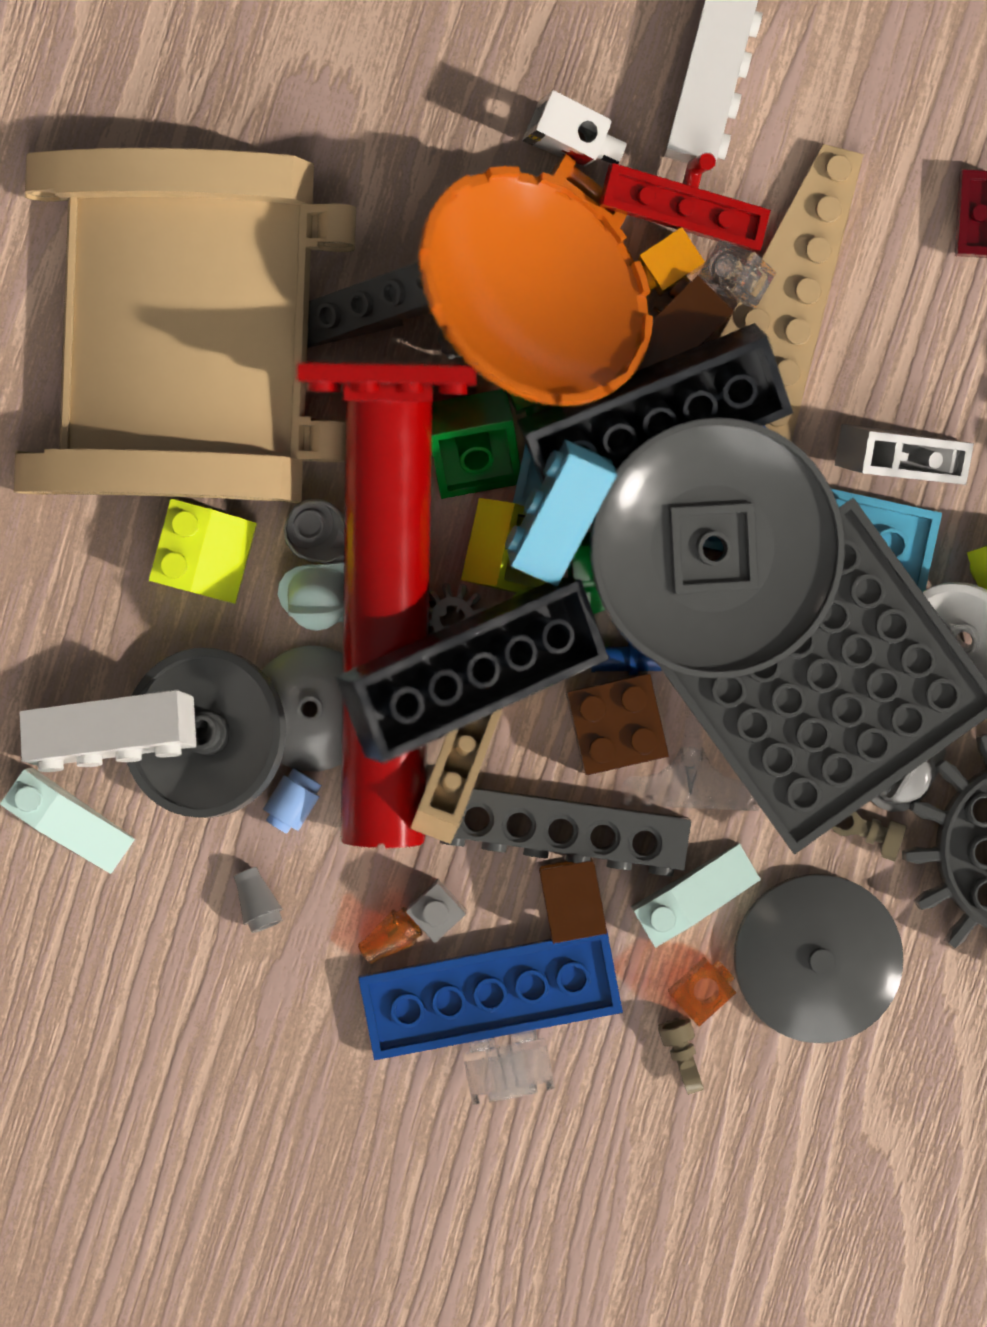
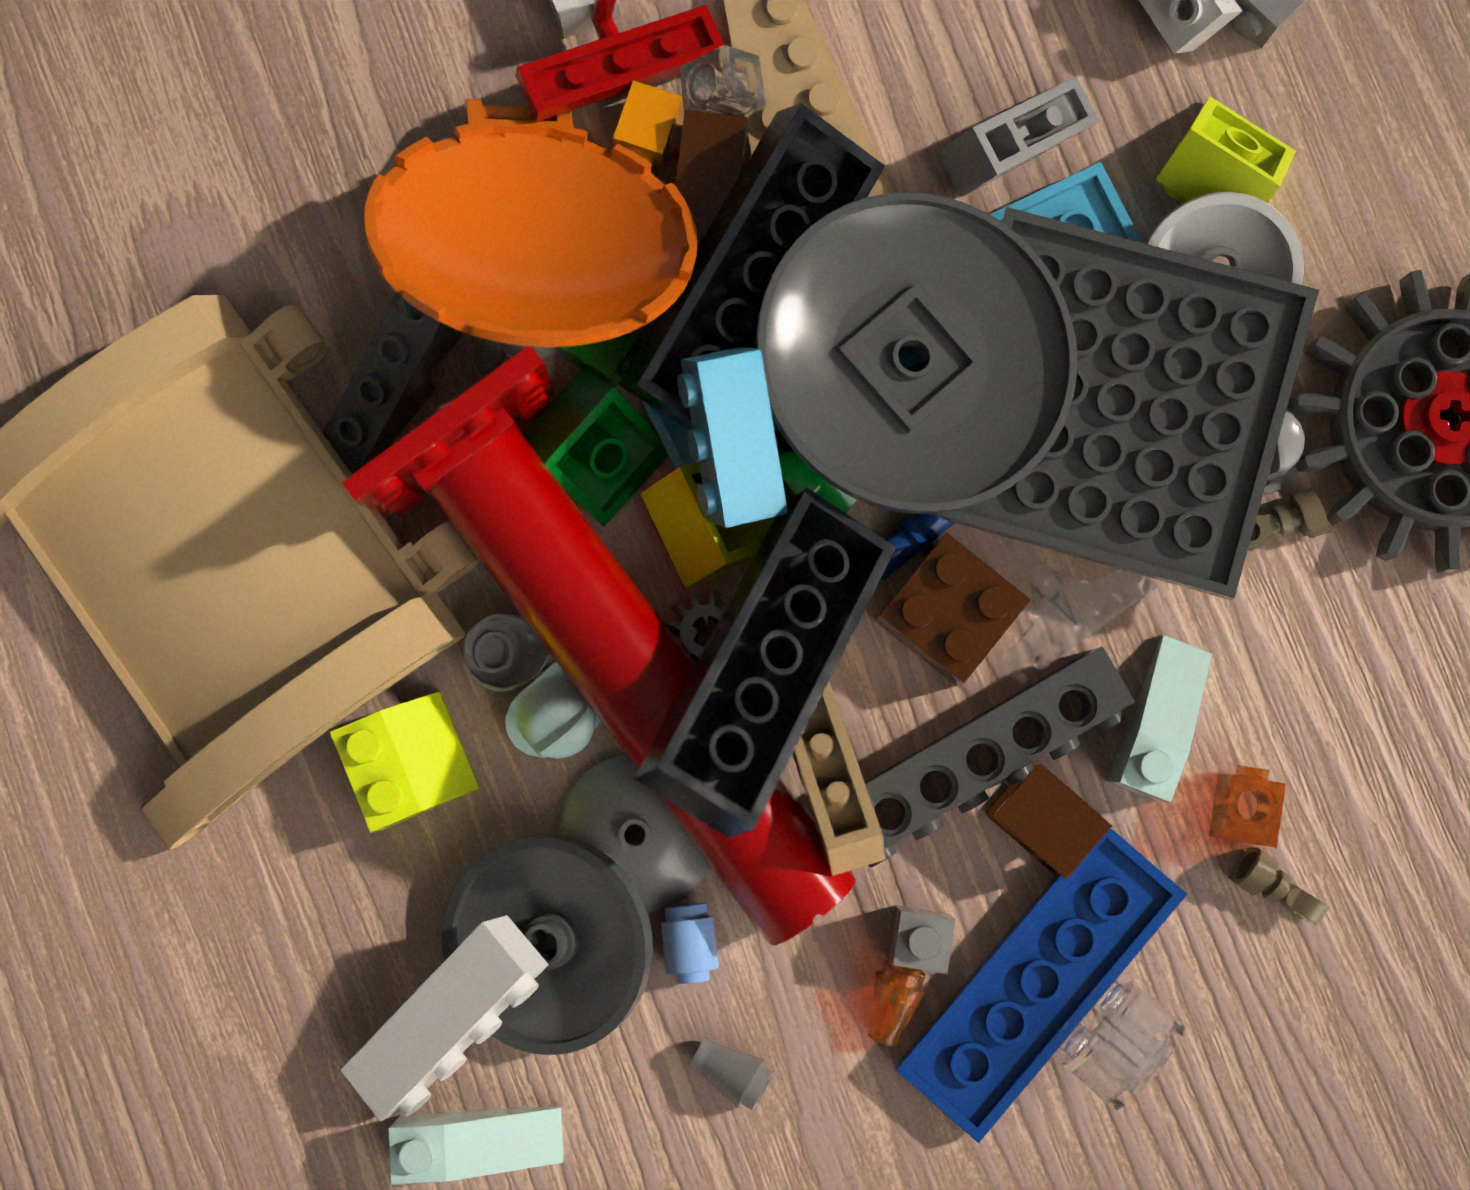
camera: 40 degrees left, 5 degrees down
(556, 129) = (453, 67): white torso -> none
(818, 958) = (1331, 687): dark grey dish -> none

